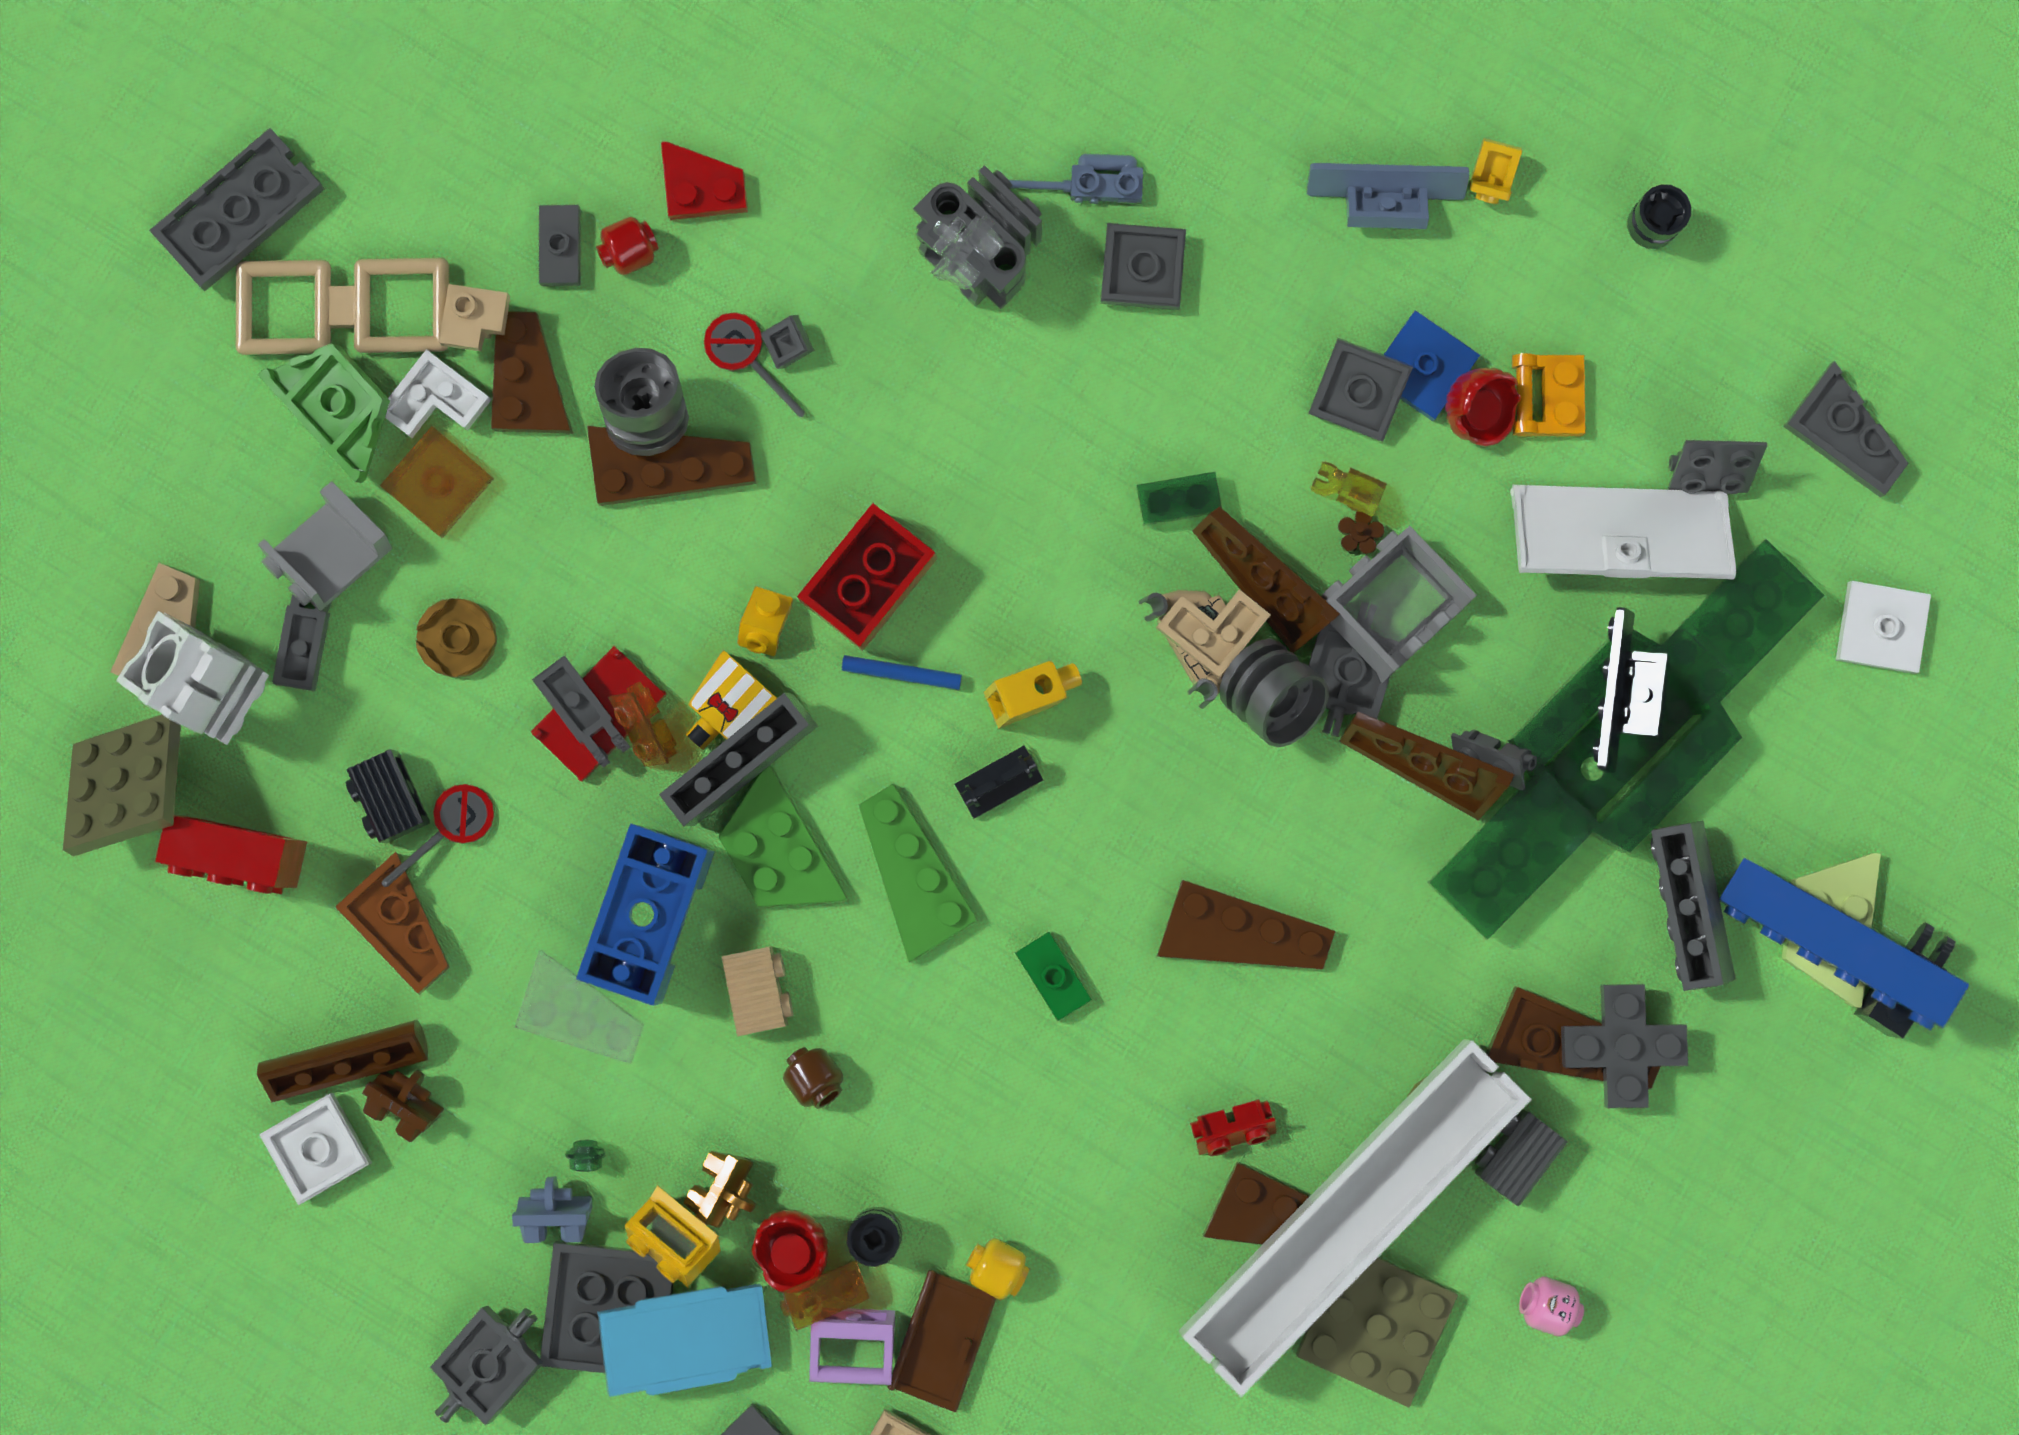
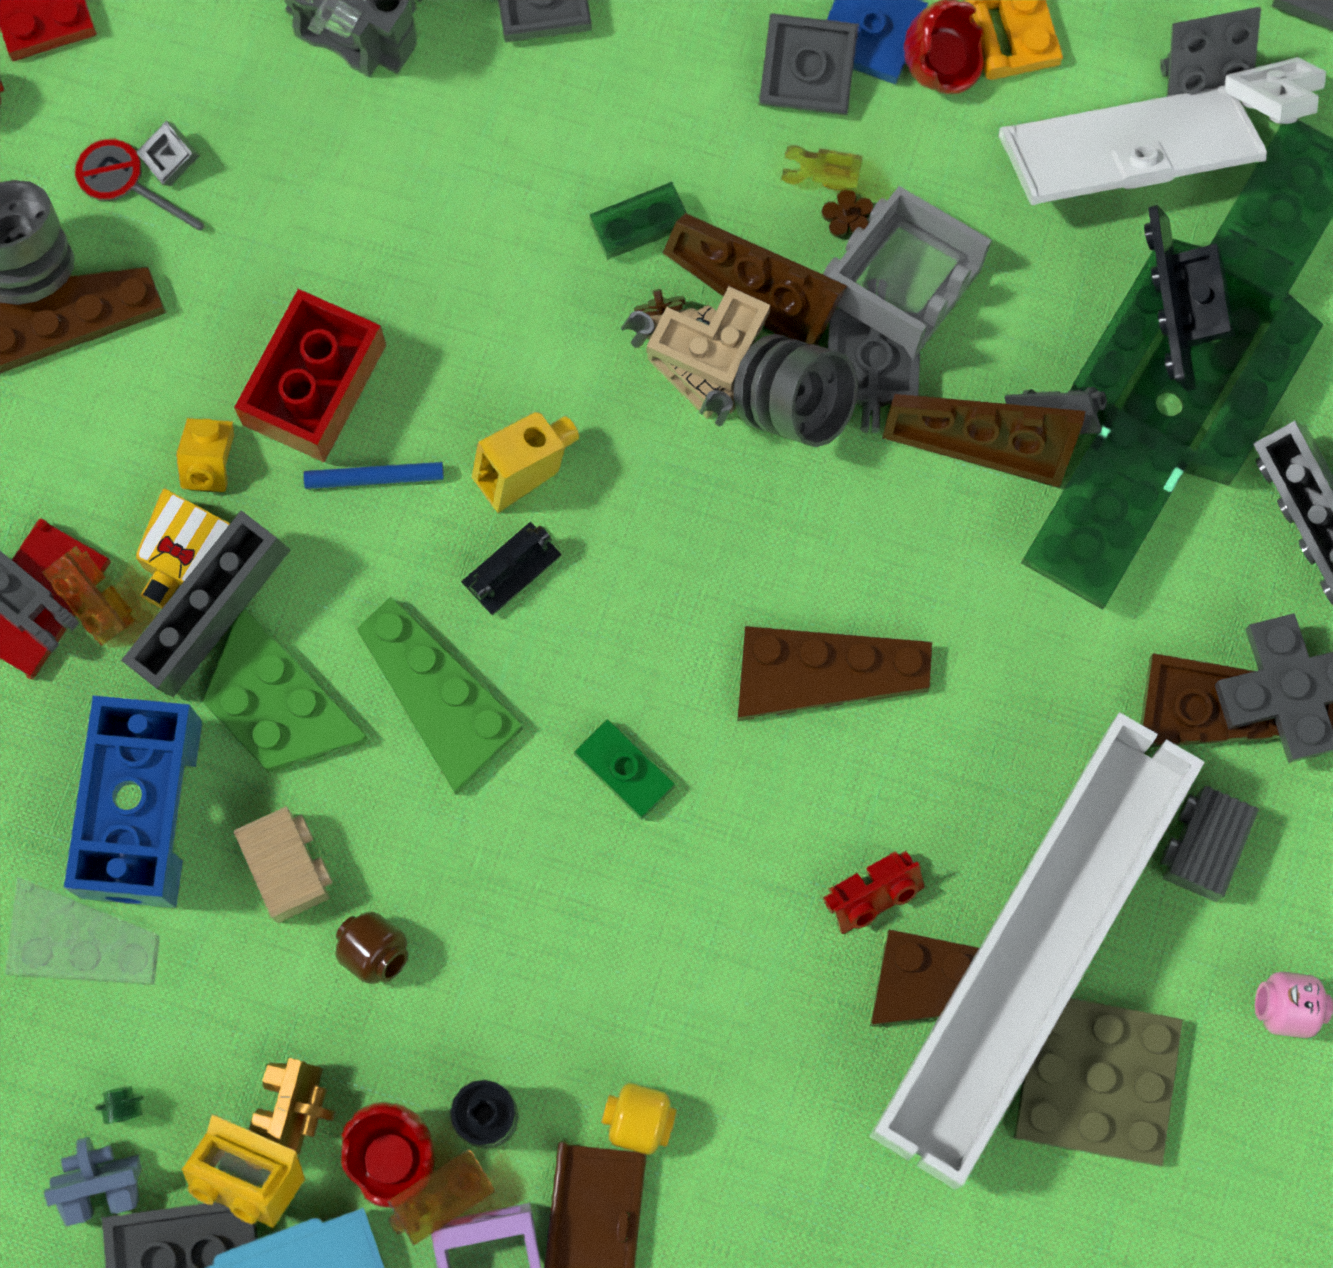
camera: 20 degrees left, 10 degrees down
(1177, 581) = (659, 303): none -> plant
(1761, 513) = (1279, 89): none -> white plate

